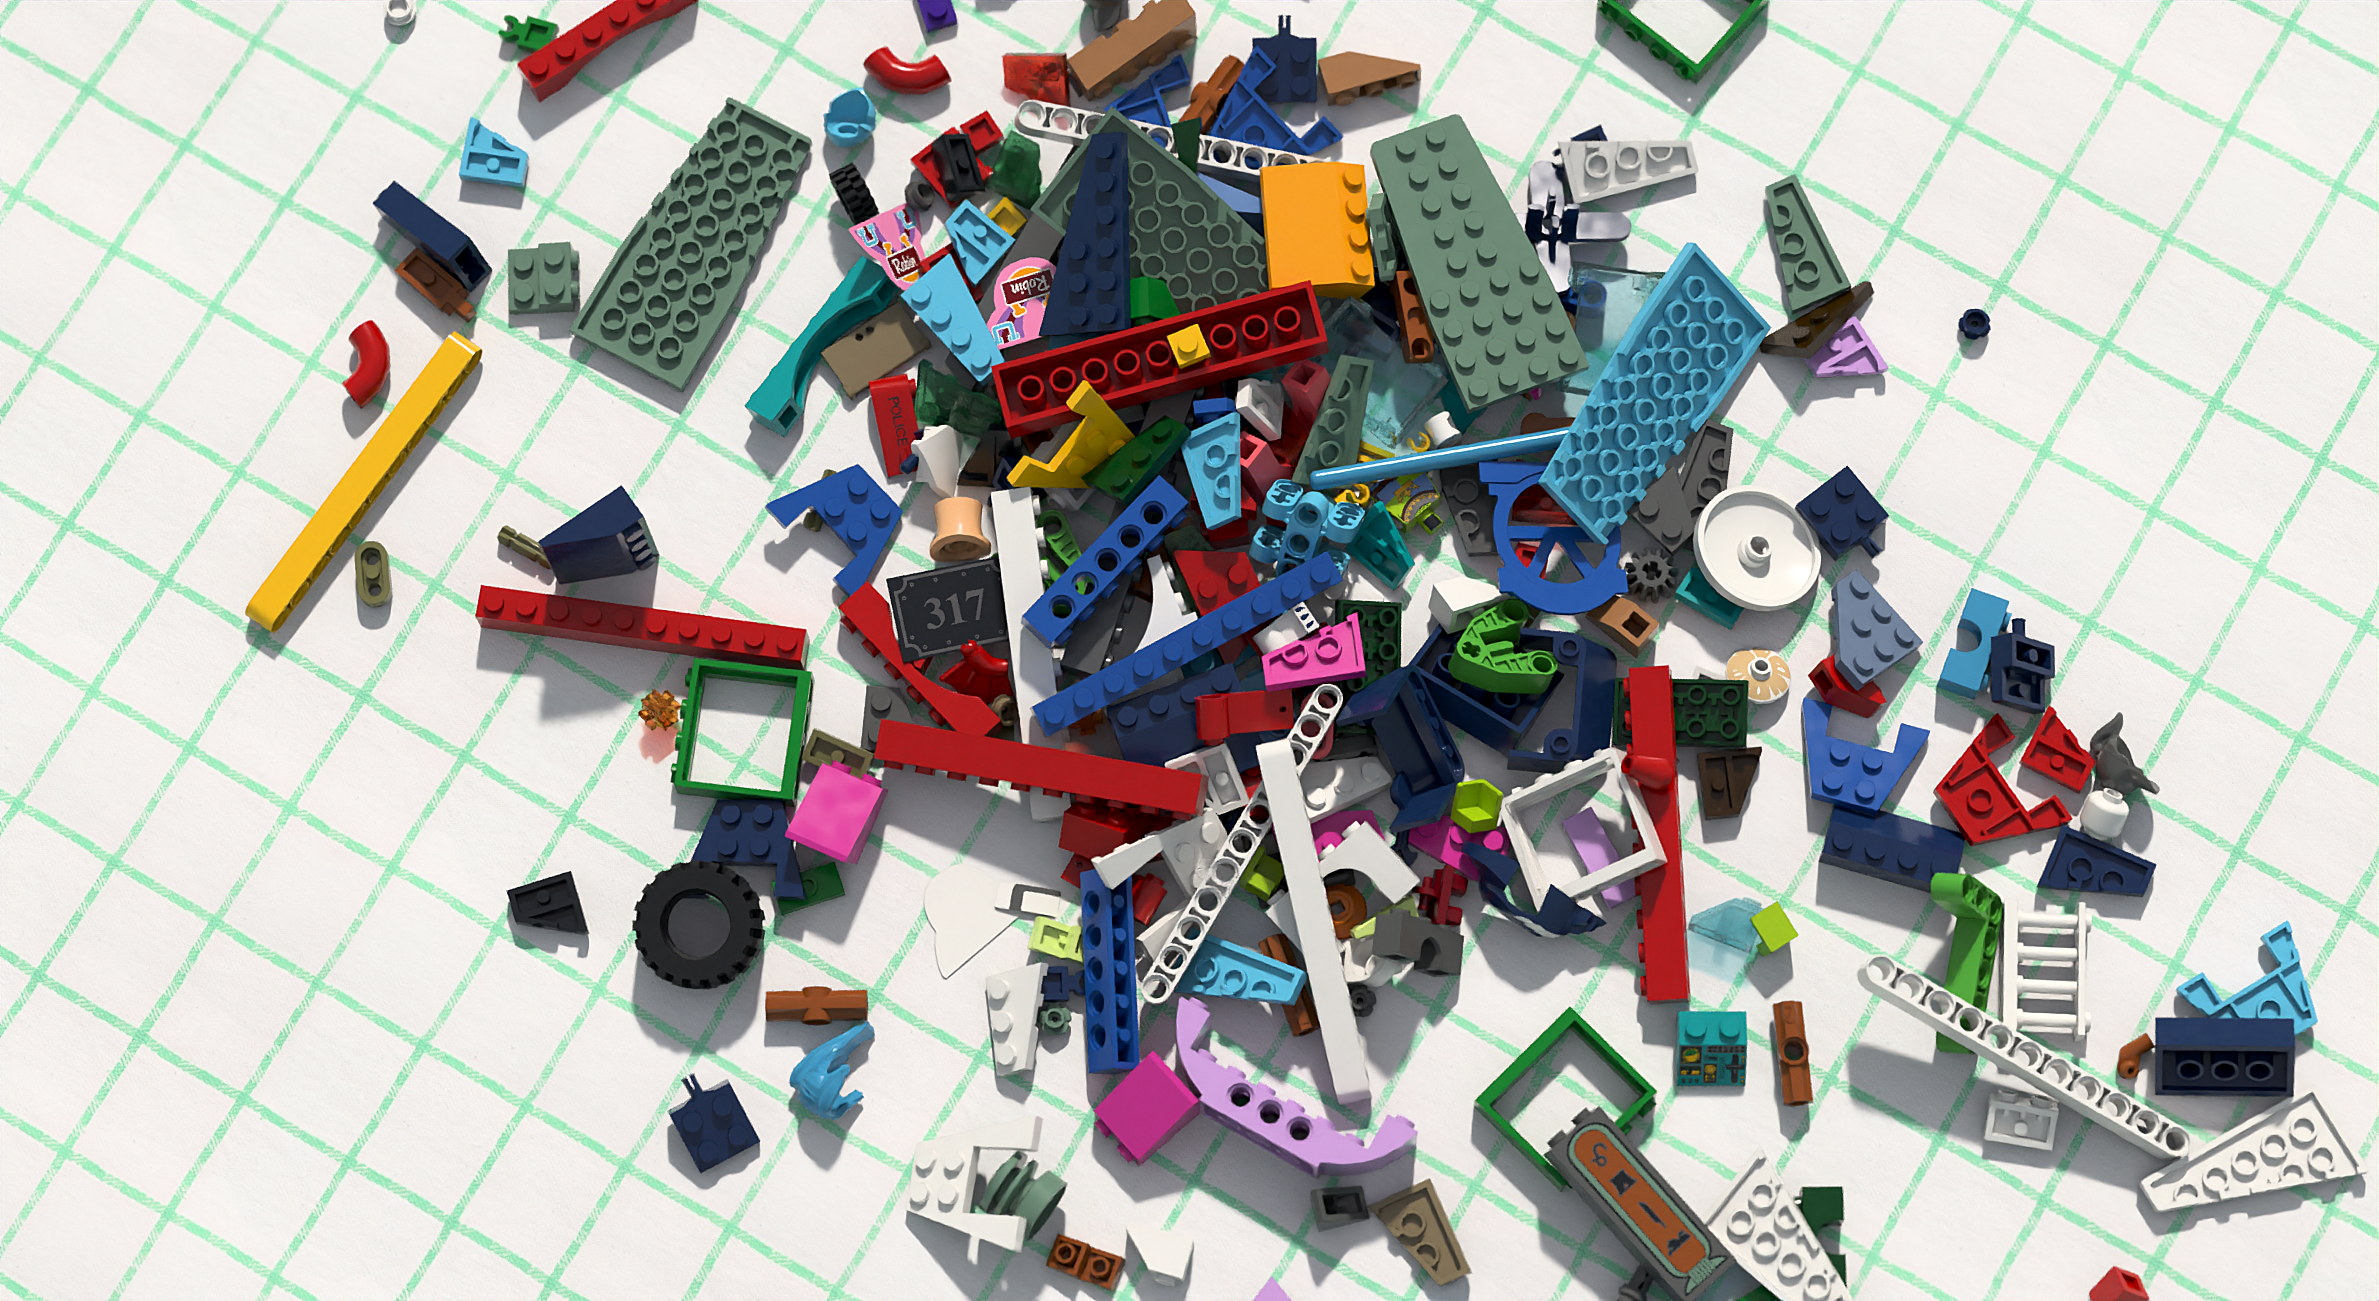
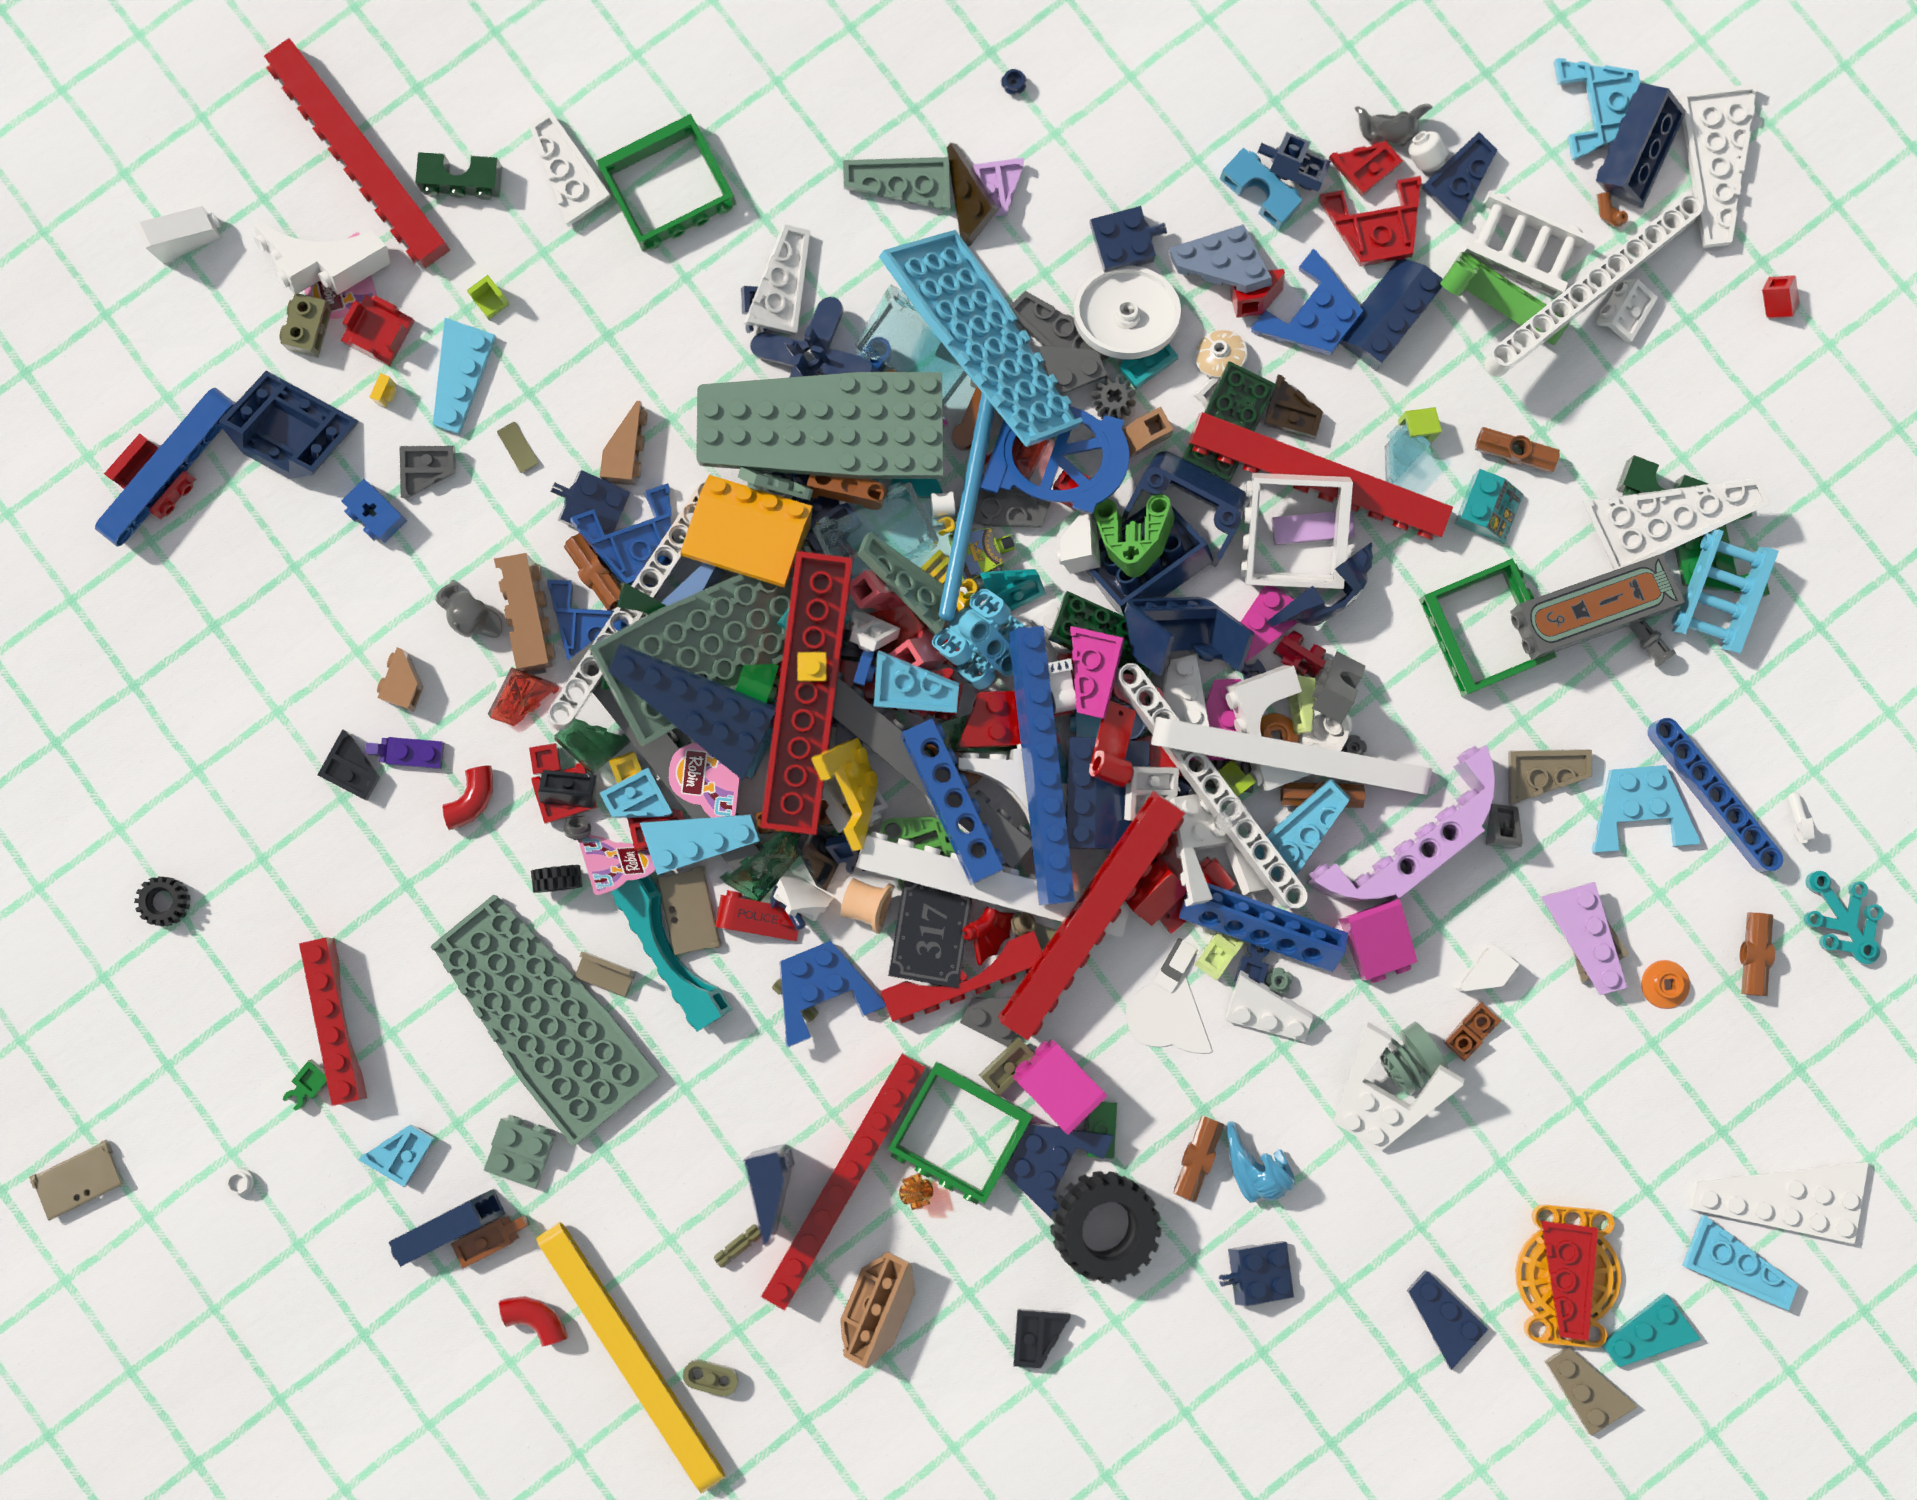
camera: 75 degrees left, 10 degrees up
(513, 719) = (876, 1309): none -> medium nougat wedge
(771, 289) = (605, 974): none -> dark tan panel
(850, 118) = (490, 857): medium azure hair -> none
(1137, 462) = (881, 744): dark green wing -> none
(1476, 805) = (1243, 600): lime panel -> none
(1649, 771) = (1281, 460): red cone -> none

